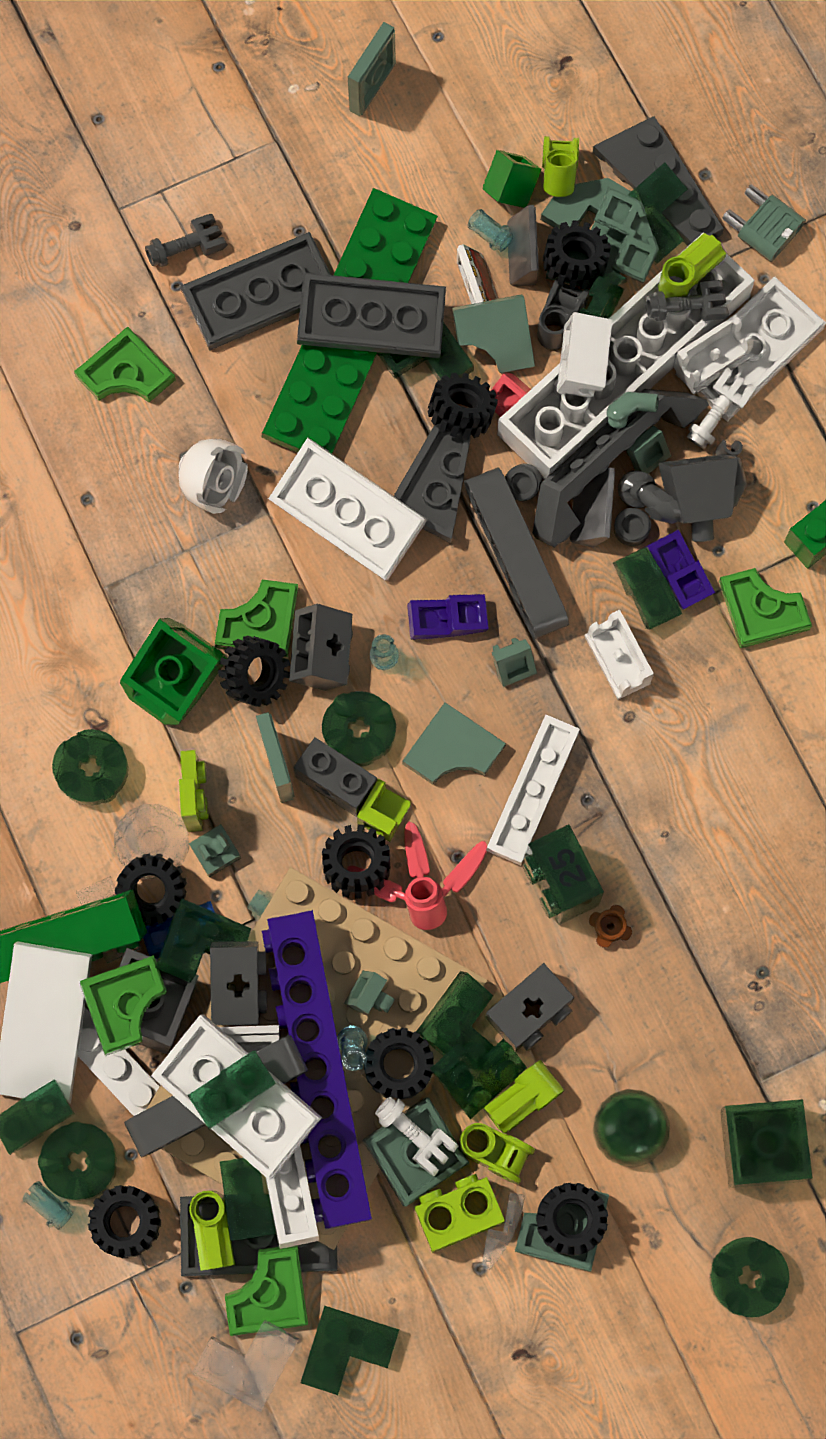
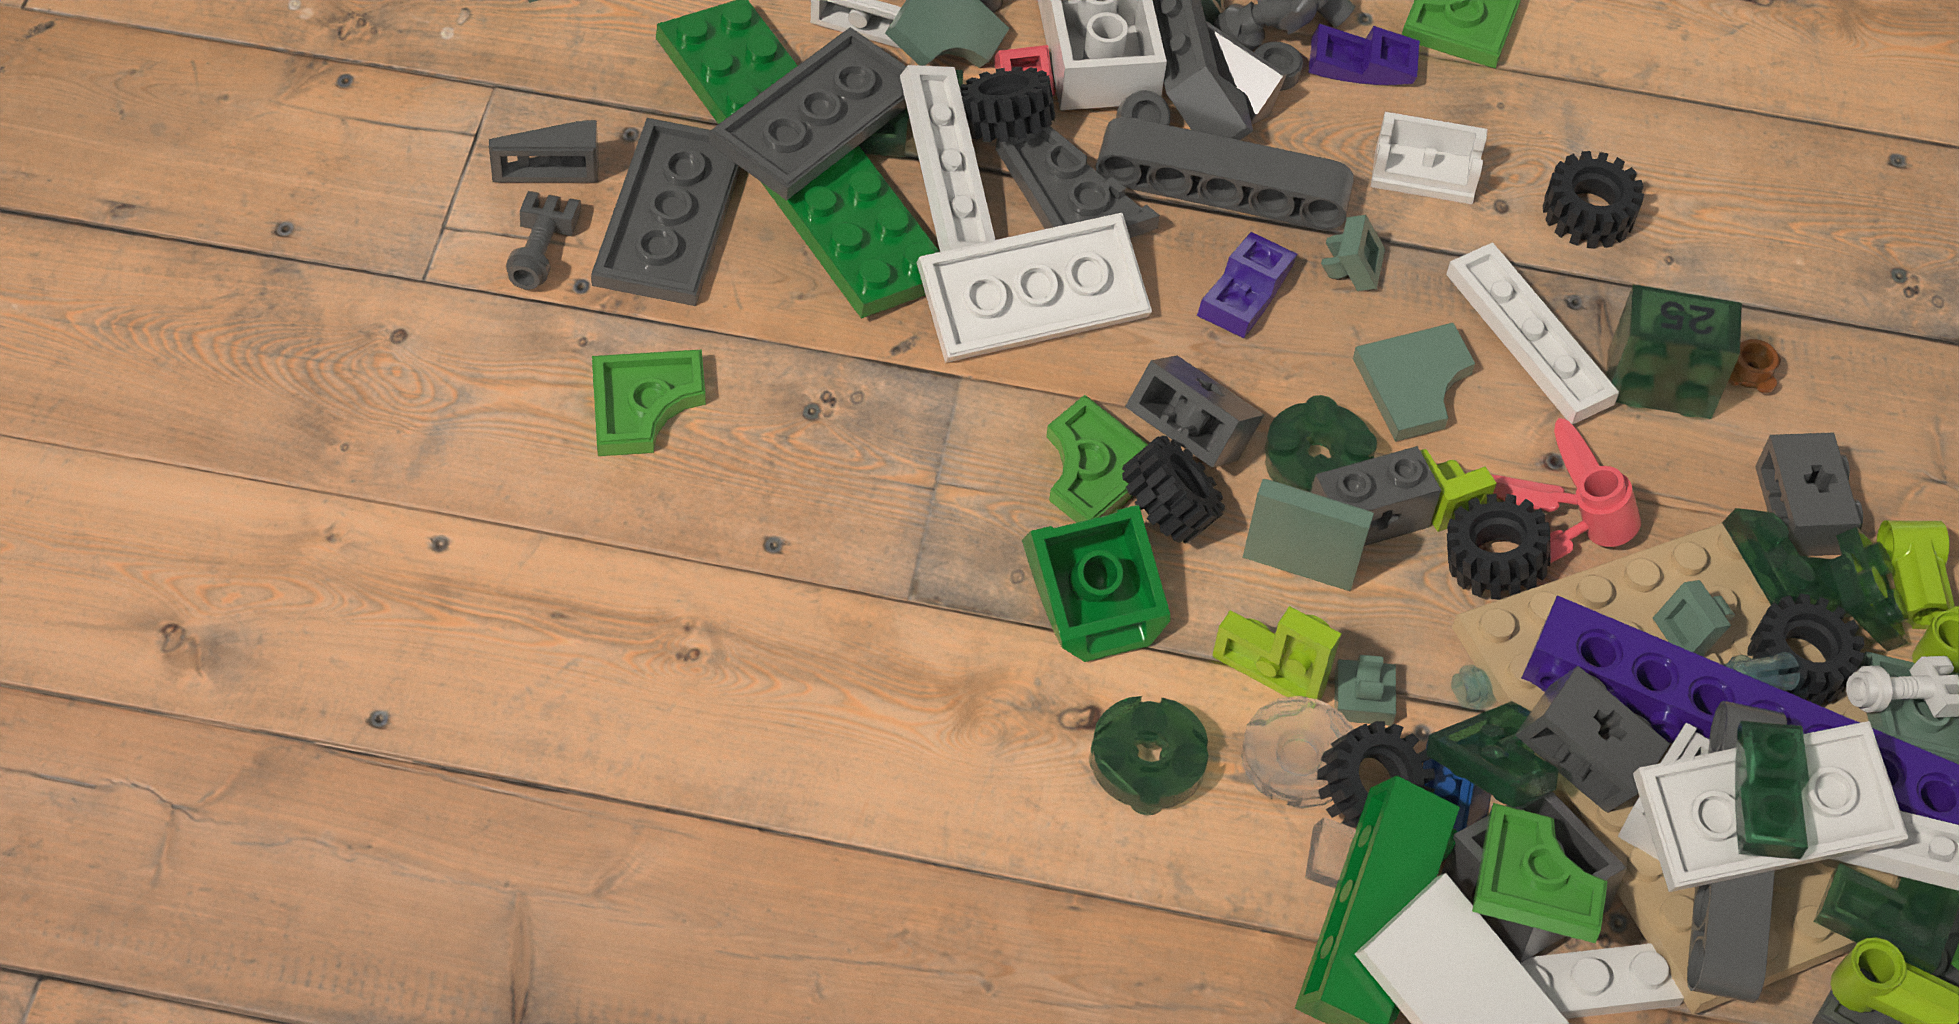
camera: 60 degrees left, 20 degrees down
(212, 474) = (868, 383): white cylinder -> none
(245, 210) = (564, 154): none -> dark grey slope
(384, 660) = (1247, 366): clear light blue pin -> none
(393, 405) = (946, 156): none -> white plate
(648, 588) = (1354, 84): clear green slope -> none
(672, 743) = (1589, 220): none -> black tyre

